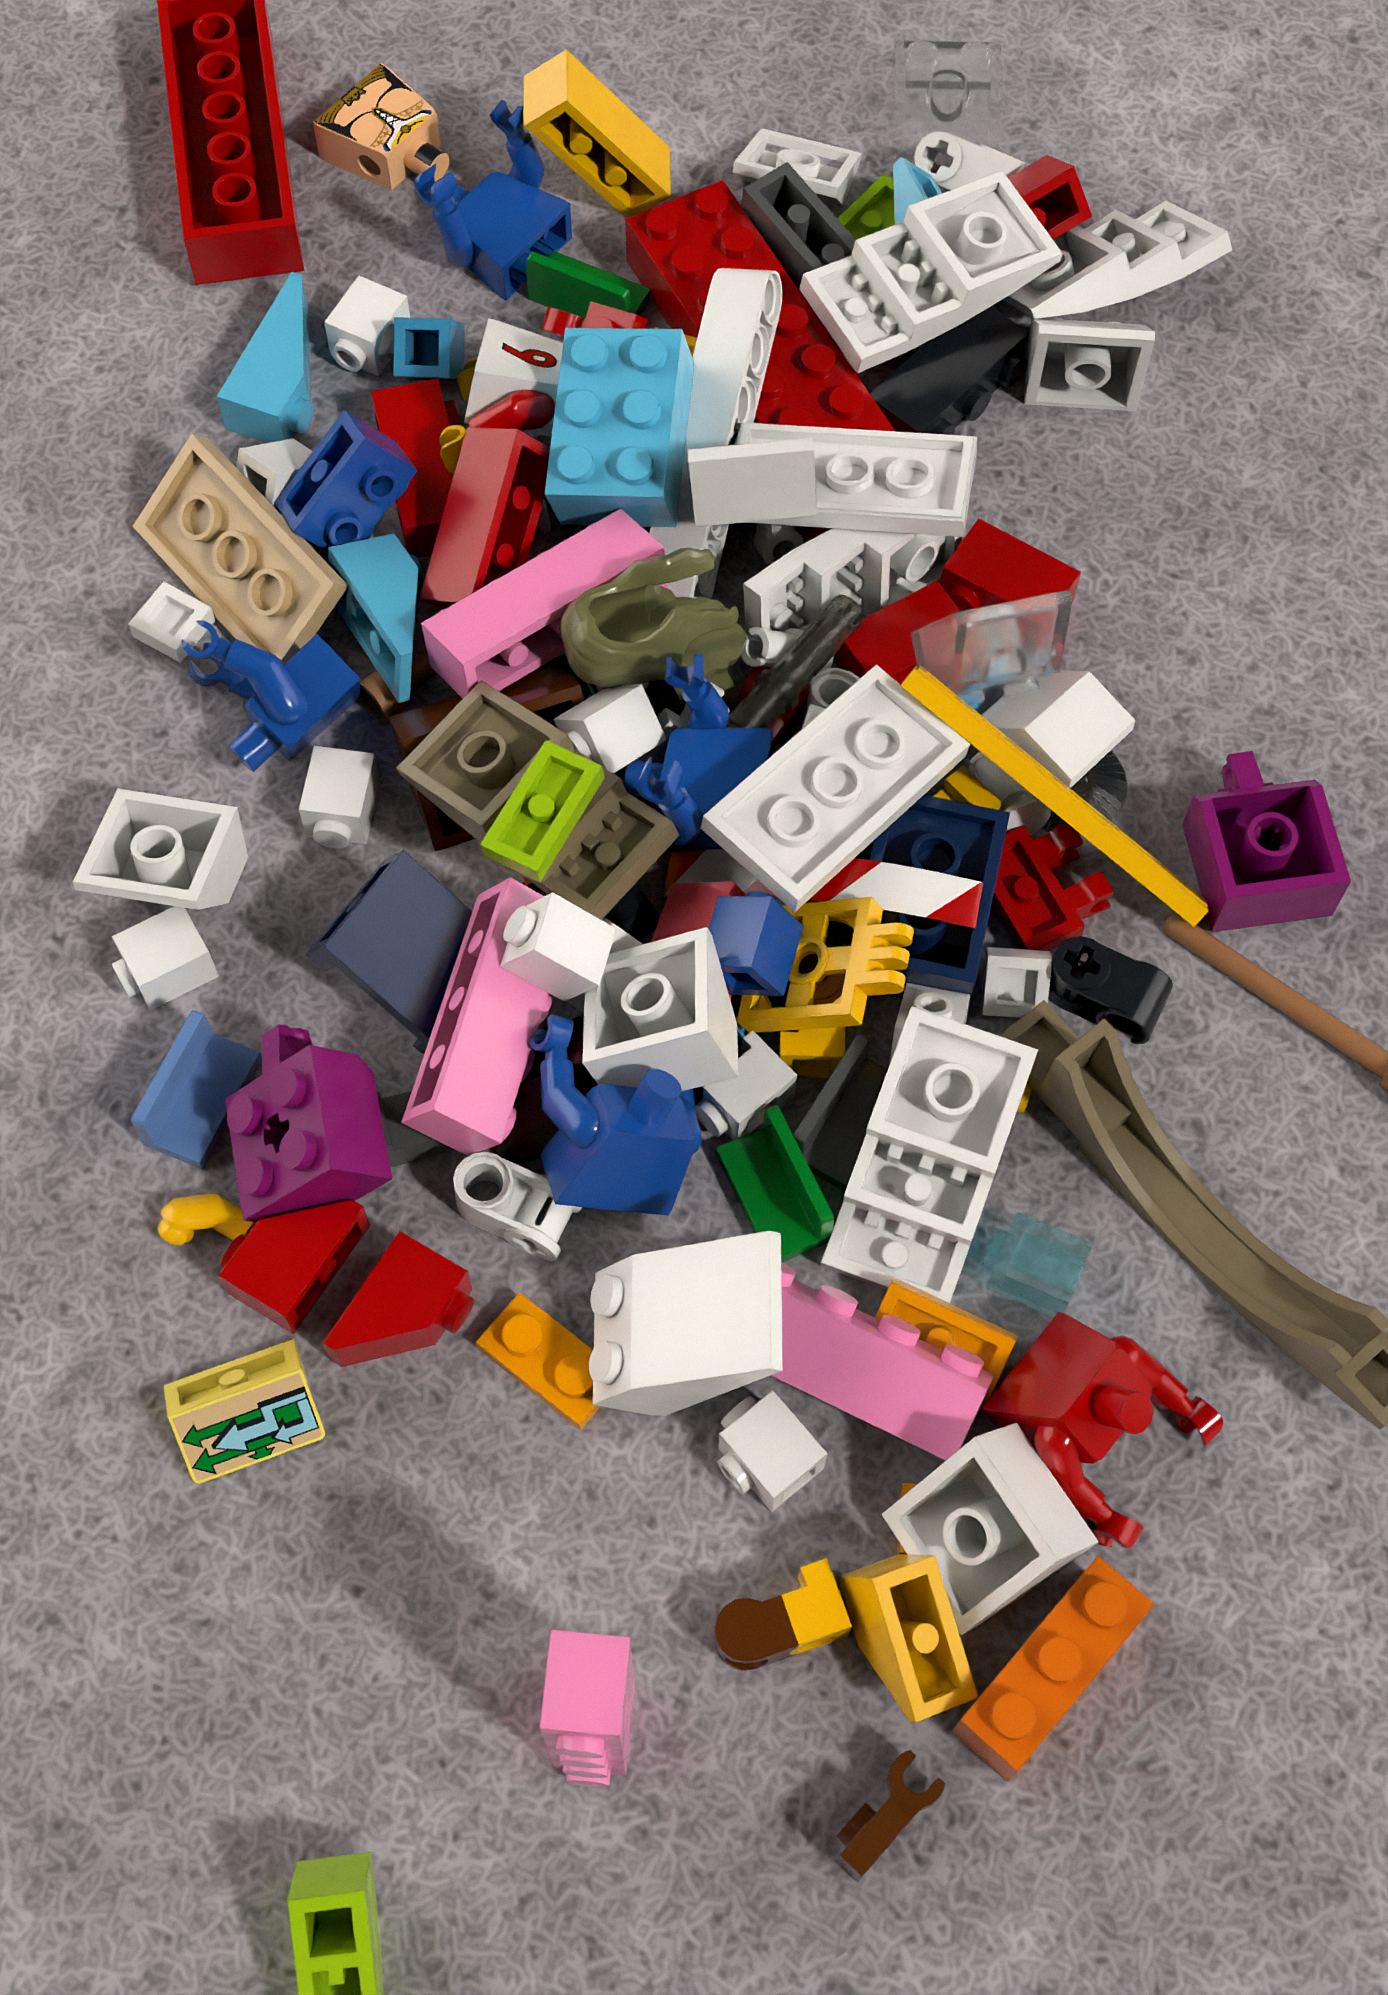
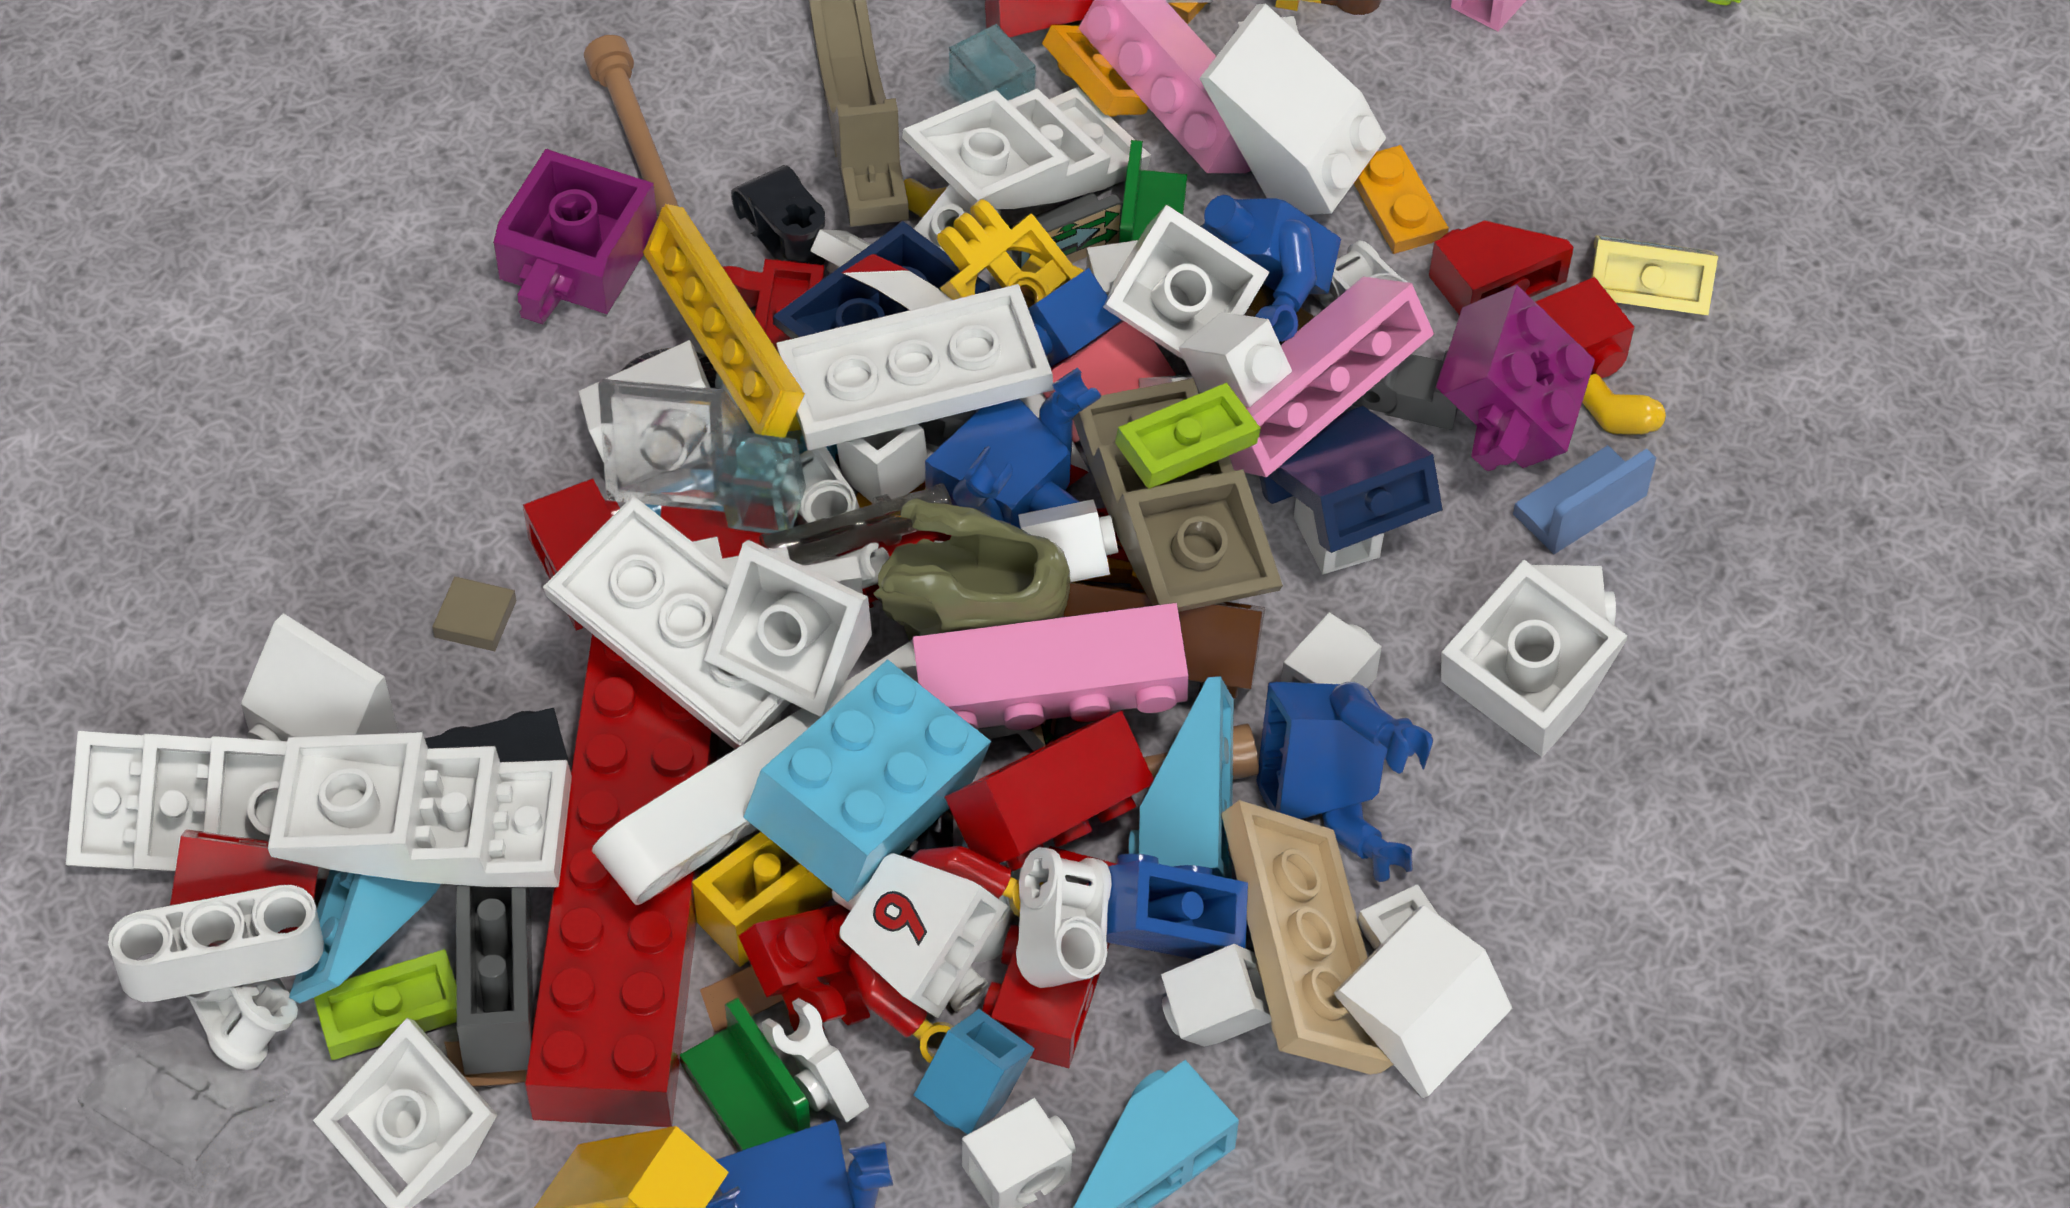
camera: 150 degrees left, 10 degrees down
(129, 562) = (1426, 998): none -> white slope
(408, 417) = (1062, 918): none -> white piece
(528, 295) = (823, 1071): none -> white plate
(893, 636) = (761, 483): none -> clear light blue brick
(988, 125) = (185, 930): none -> white beam
(1056, 514) = (474, 613): none -> dark tan tile

